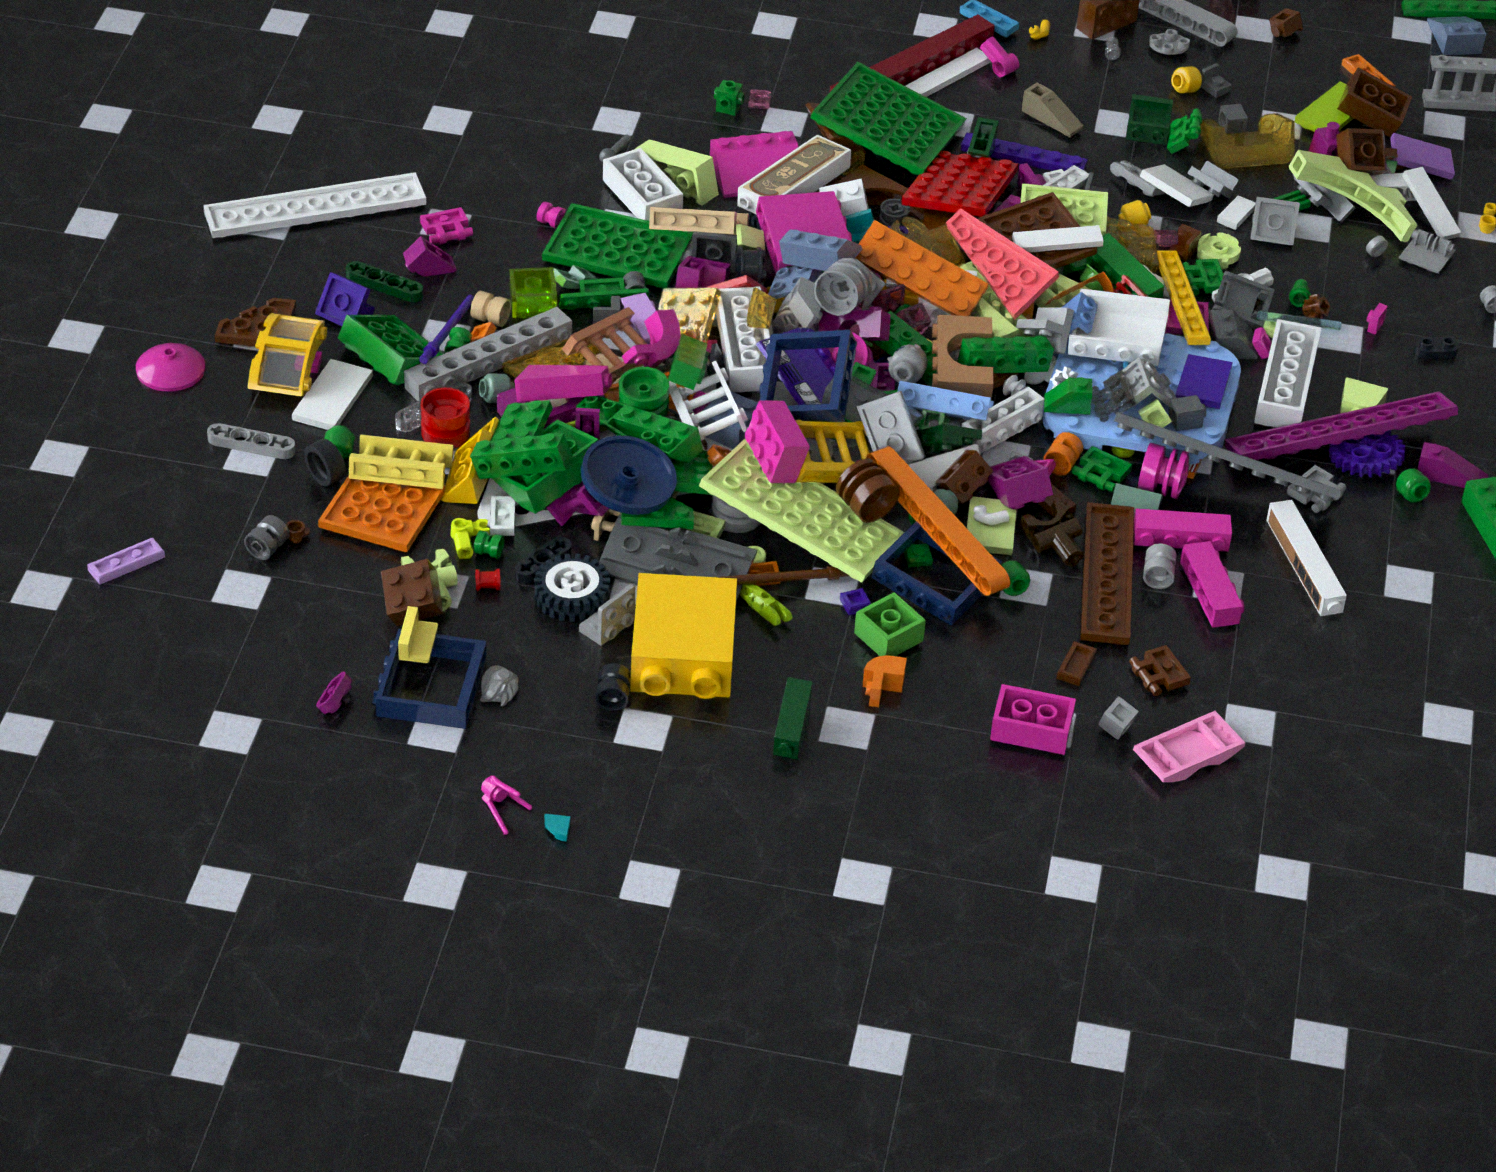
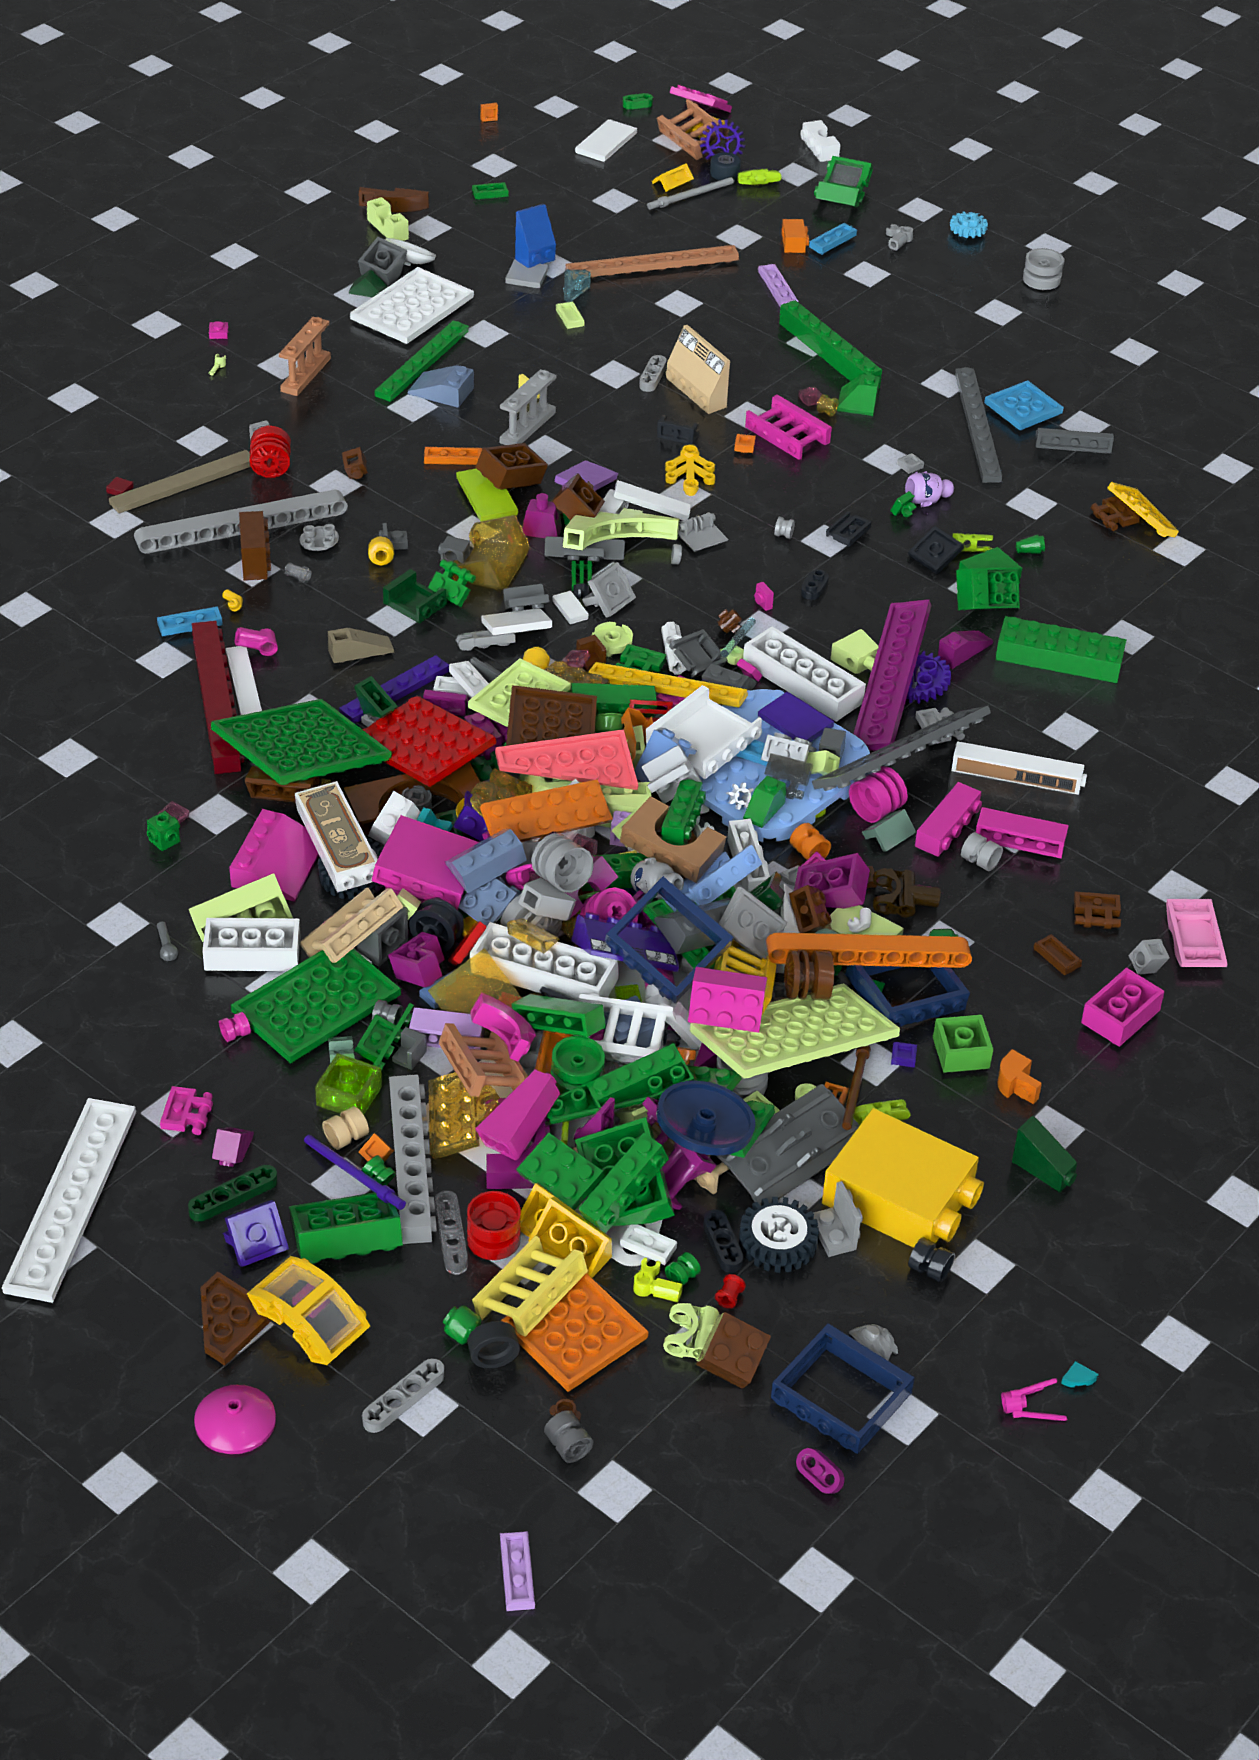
camera: 60 degrees left, 0 degrees up
(332, 394) = (388, 1310): white tile -> none
(416, 638) = (799, 1372): light yellow panel -> none
(493, 385) = (464, 1172): sand green head -> none
(1059, 238) = (573, 710): white tile -> none
(1104, 464) = (840, 825): green plate -> none
(1107, 574) = (968, 886): reddish brown plate -> none
(1299, 293) = (701, 620): green cone -> none
(1413, 485) = (972, 672): green head -> none

